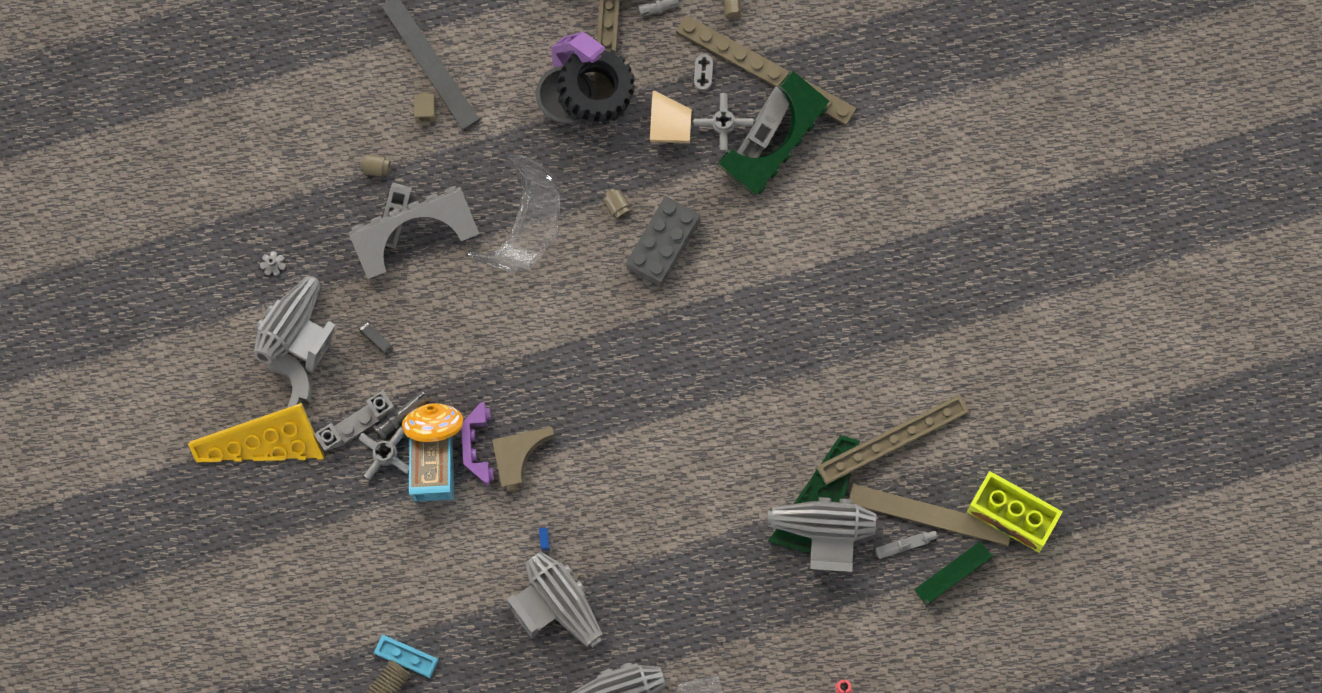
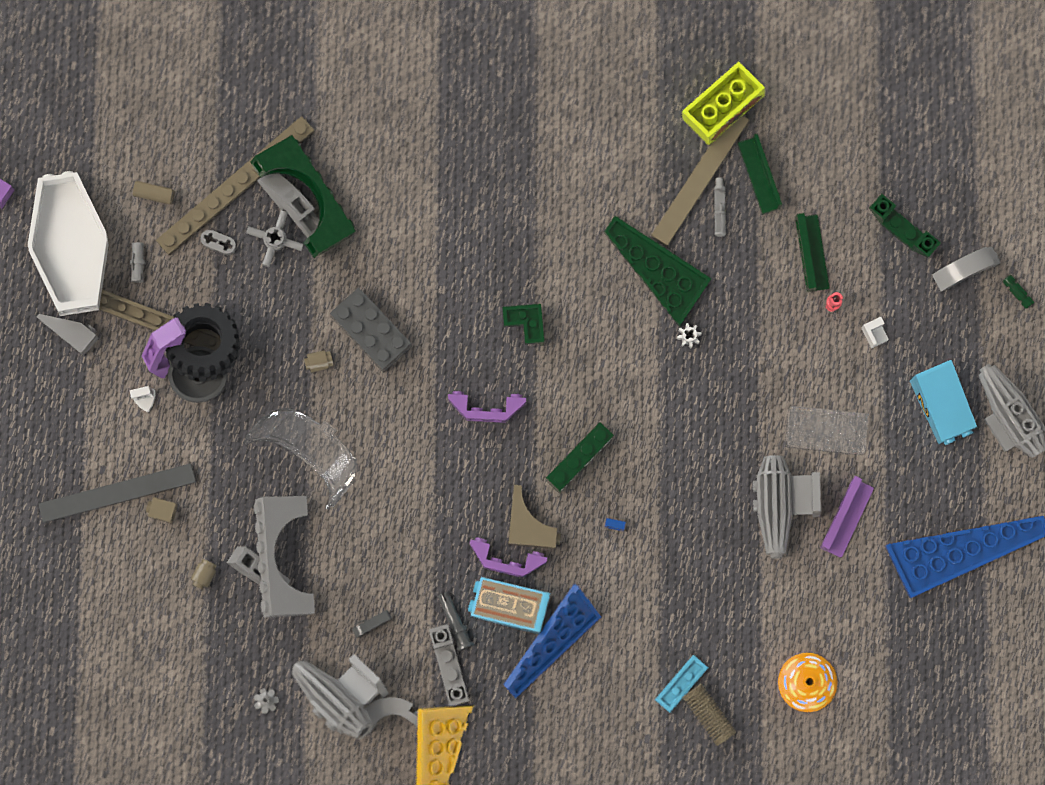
camera: 85 degrees left, 5 degrees up
(391, 457) = (488, 639): light grey bar -> none
(420, 518) = (561, 631): none -> blue wing
(432, 423) = (475, 592): light orange dish -> none
(529, 55) = (144, 397): none -> white tile
(554, 596) = (672, 532): light grey piece -> none
(600, 483) = (579, 457): none -> dark green brick
(630, 401) = (460, 403): none -> medium lavender slope
(669, 120) = (255, 287): tan slope -> none
(724, 391) = (529, 317): none -> dark green panel
(764, 557) = (688, 341): none -> white gear
(831, 527) = (690, 264): light grey piece -> none
(890, 652) = (812, 252): none -> dark green panel
(892, 439) = (623, 187): dark tan tile -> none

